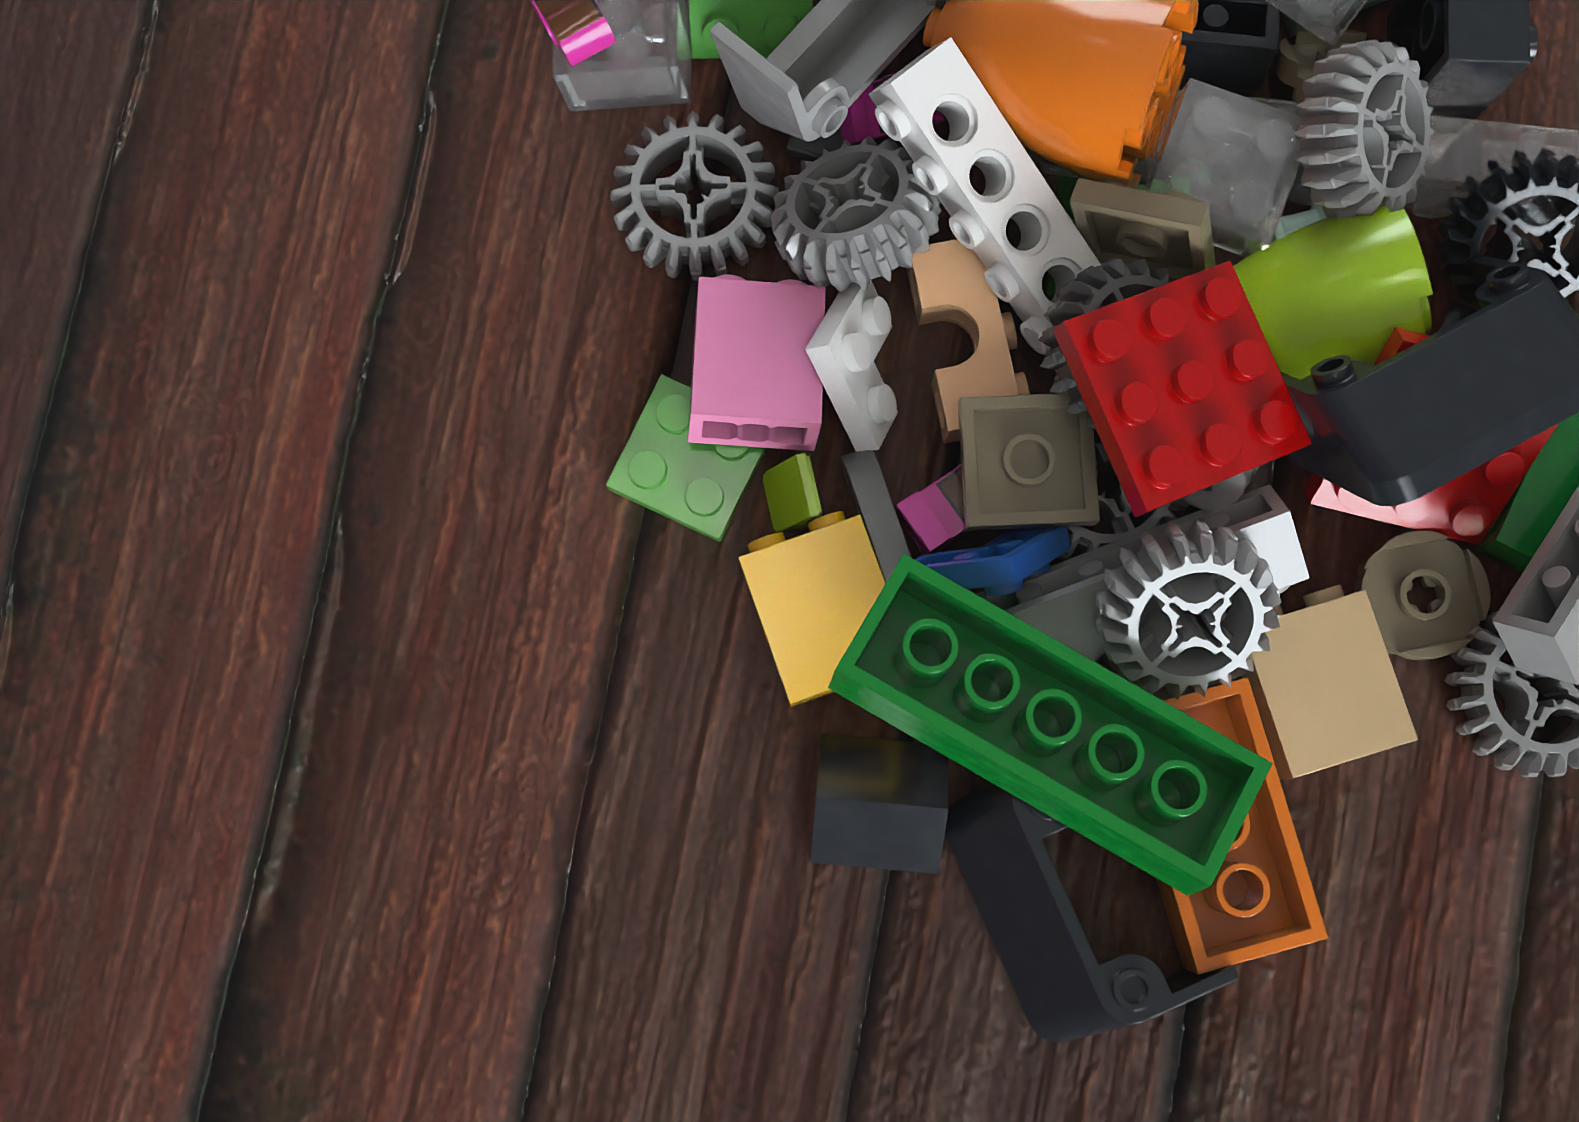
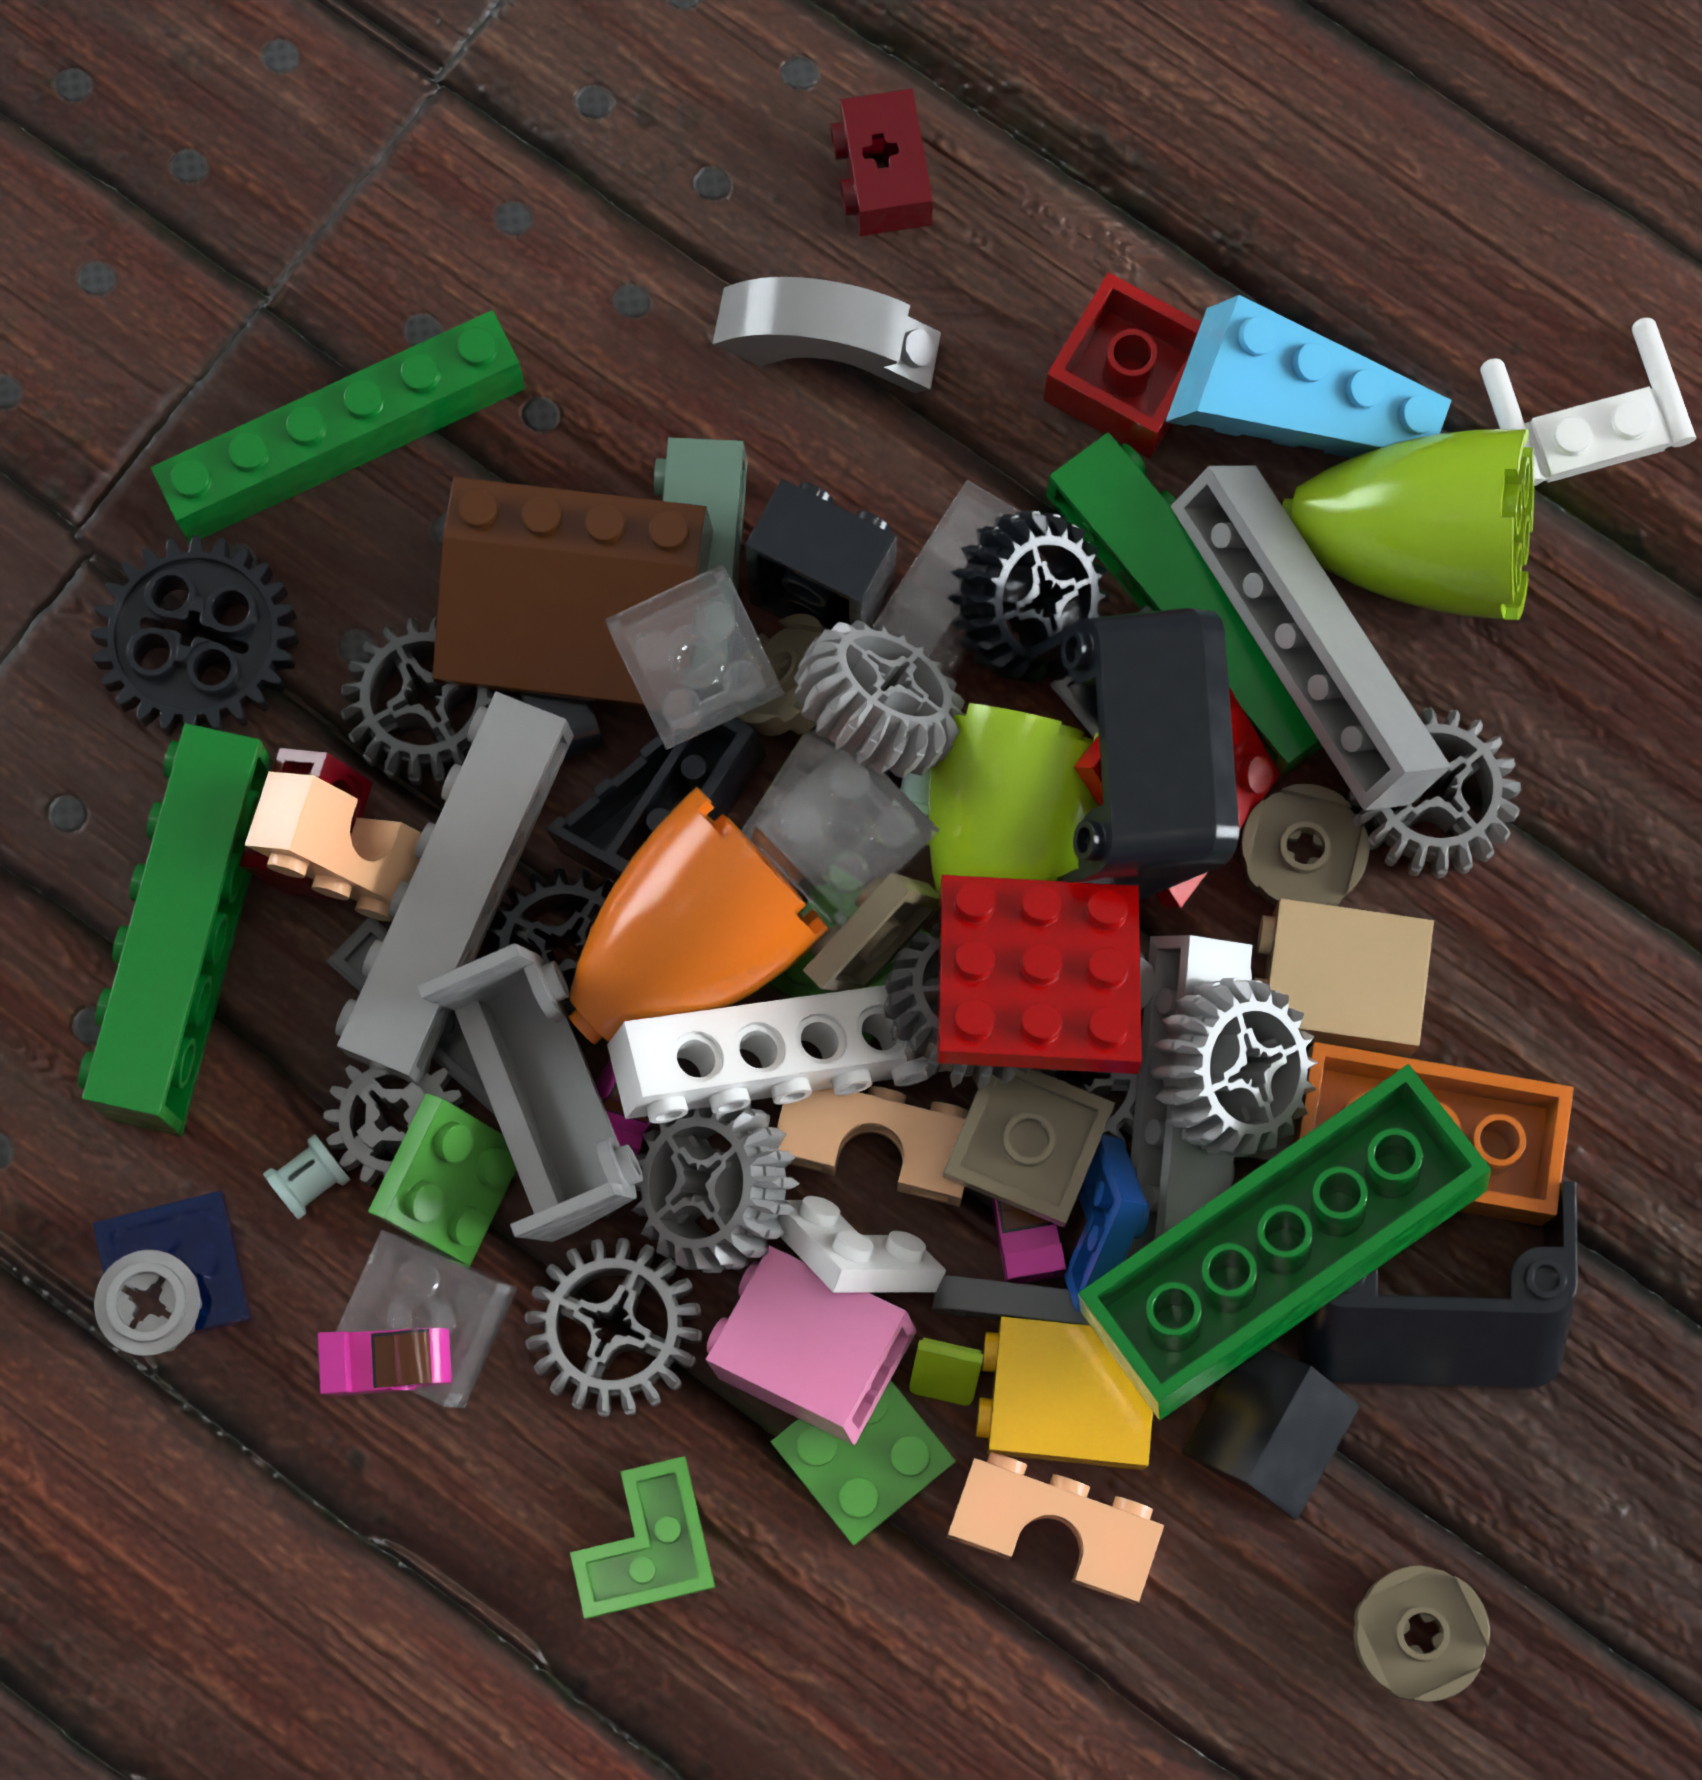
camera: 70 degrees left, 5 degrees down
(528, 330) = (664, 1556): none -> bright green plate
(699, 593) = (1112, 1540): none -> light nougat arch
(763, 1057) = (1405, 1669): none -> dark tan plate

